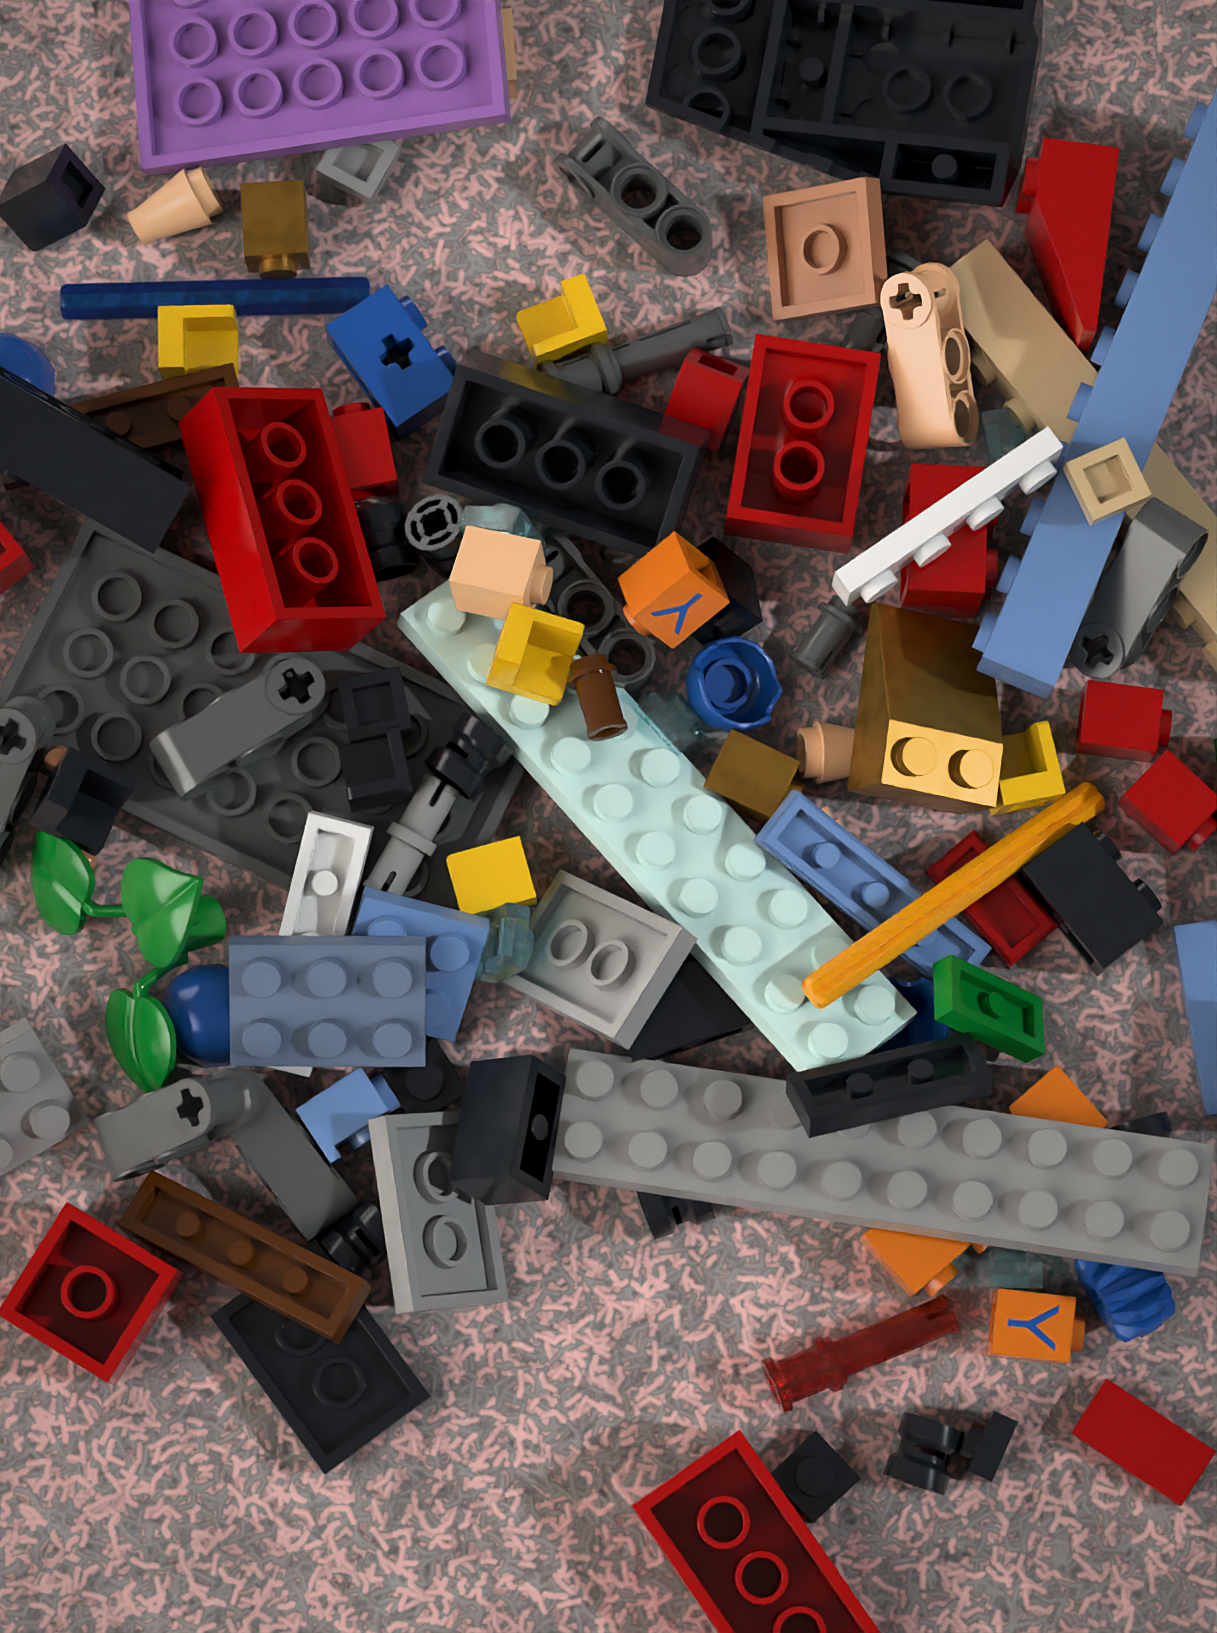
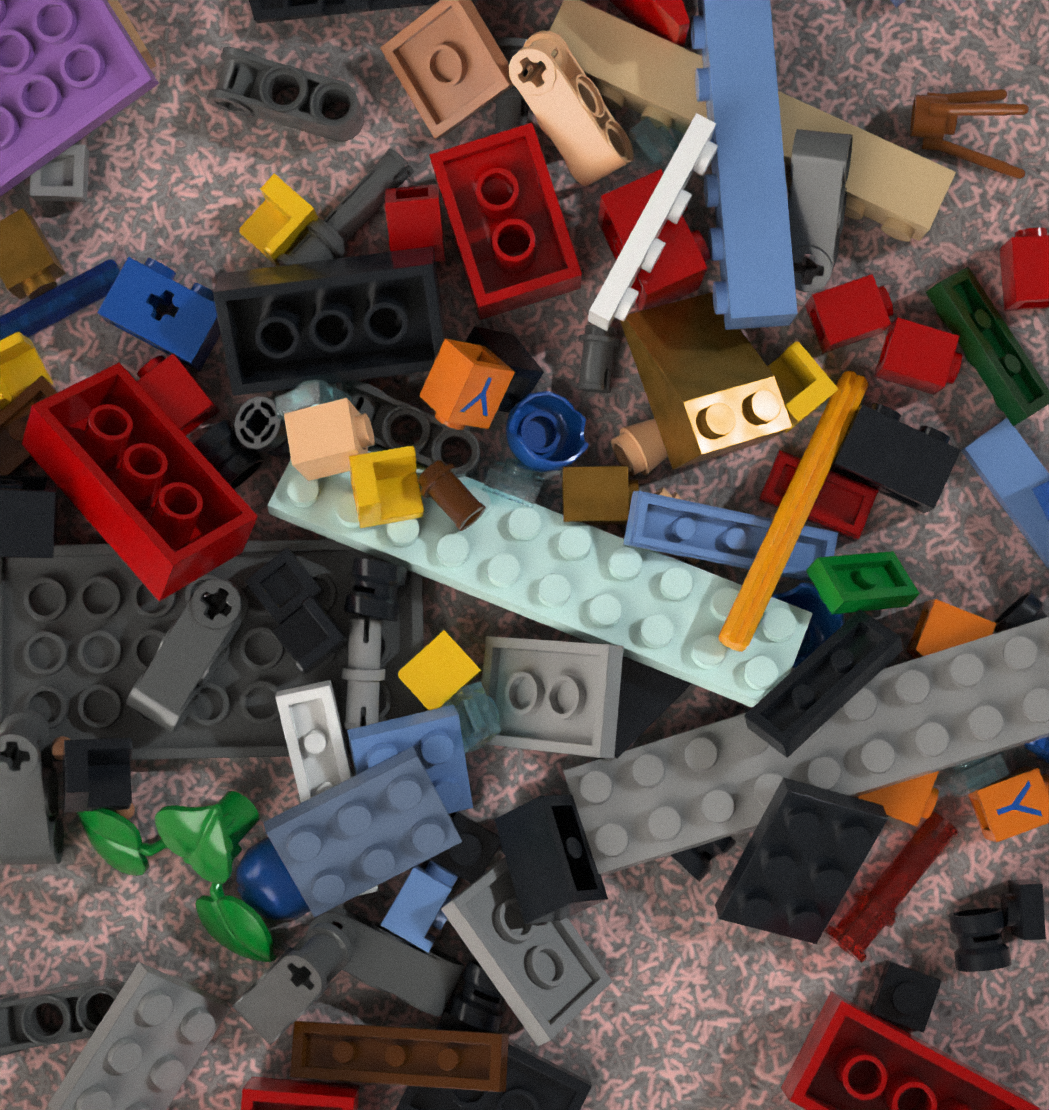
camera: 25 degrees left, 5 degrees up
(771, 1265) = (800, 861): none -> black plate
(1107, 481) = (760, 134): tan plate -> none

